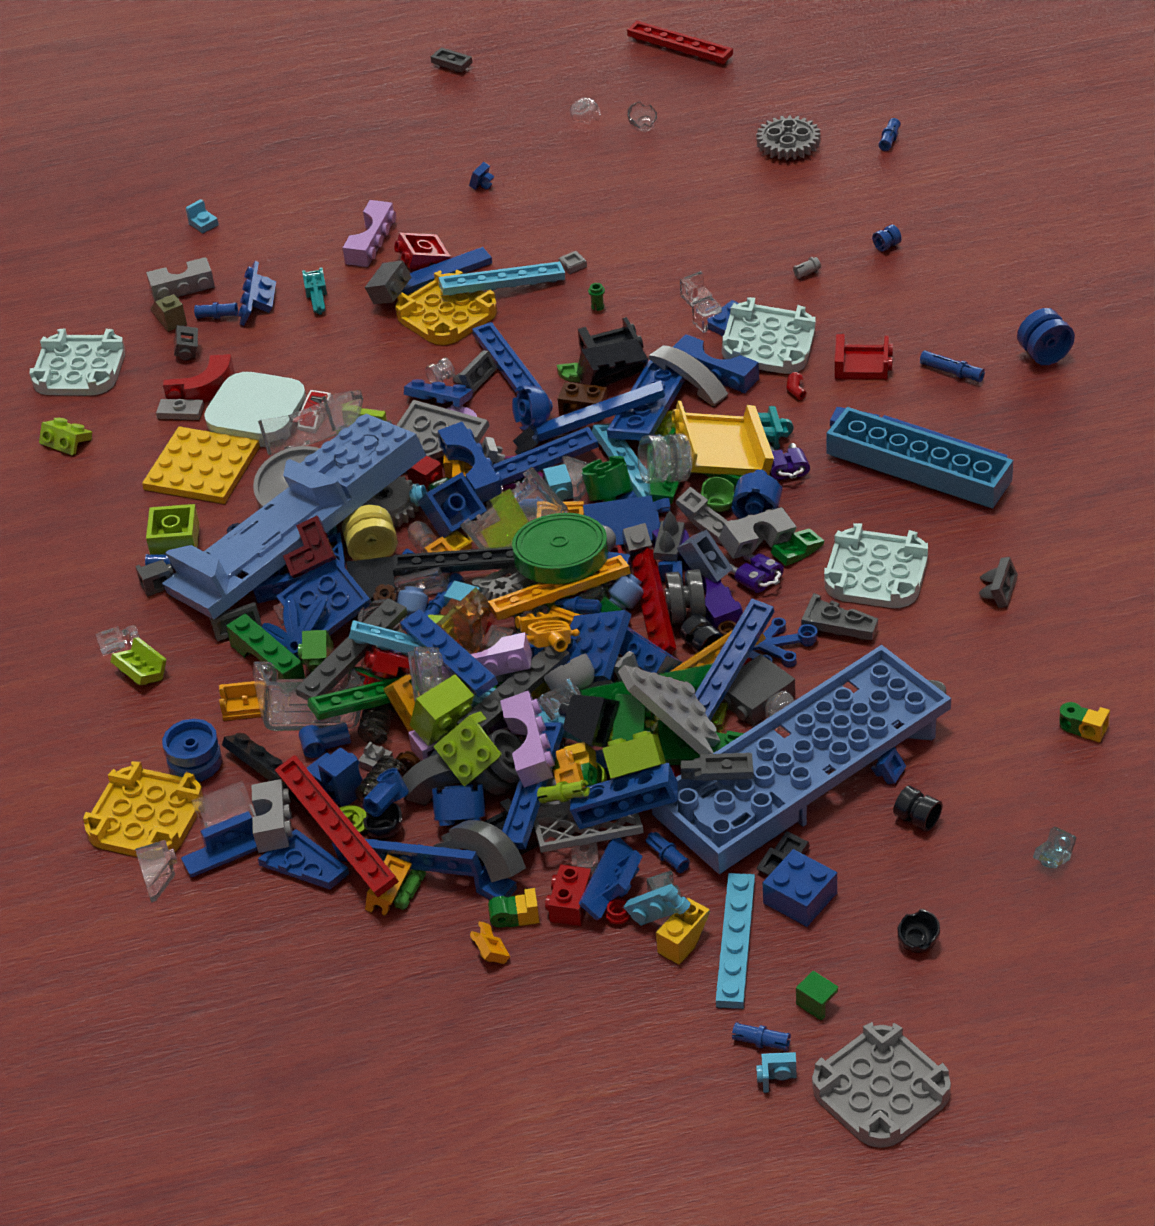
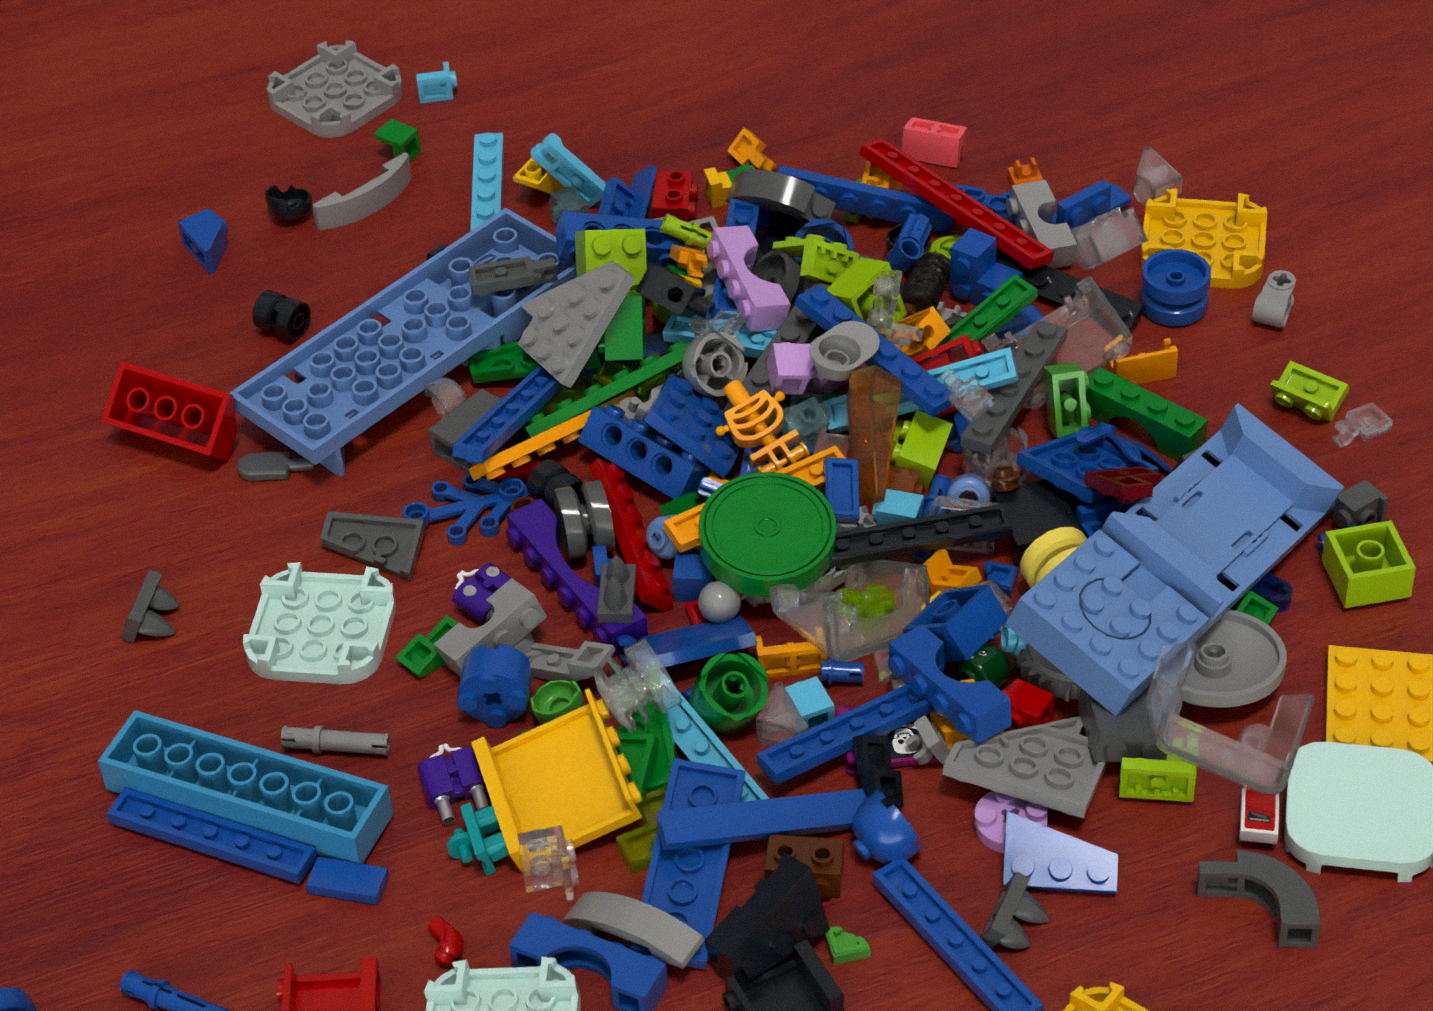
camera: 170 degrees right, 0 degrees up
(121, 742) = (1275, 299): none -> light grey piece
(259, 896) = (1023, 173): none -> orange tile
(324, 930) = (934, 142): none -> coral hinge
(331, 377) = (1270, 885): none -> dark grey arch
(392, 614) = (967, 397): none -> clear plate
(440, 371) = (1067, 912): clear wheel -> none
(475, 633) = (843, 350): none -> light grey piece
(500, 586) = (842, 488): none -> blue tile
(636, 539) = (667, 608): light grey brick -> none
(704, 554) = (563, 558): sand blue slope -> none
(732, 397) = (547, 860): none -> clear bracket
(761, 1036) = (453, 110): blue pin -> none
(800, 887) = (416, 226): blue brick -> none
(872, 492) = (335, 740): none -> light grey pin
(873, 920) = (364, 201): none -> light grey slope
(994, 903) = (205, 238): none -> blue slope
(1000, 709) = (172, 411): none -> red slope
(1056, 849) = (130, 293): clear light blue bracket -> none
(1084, 721) = (66, 436): leg -> none

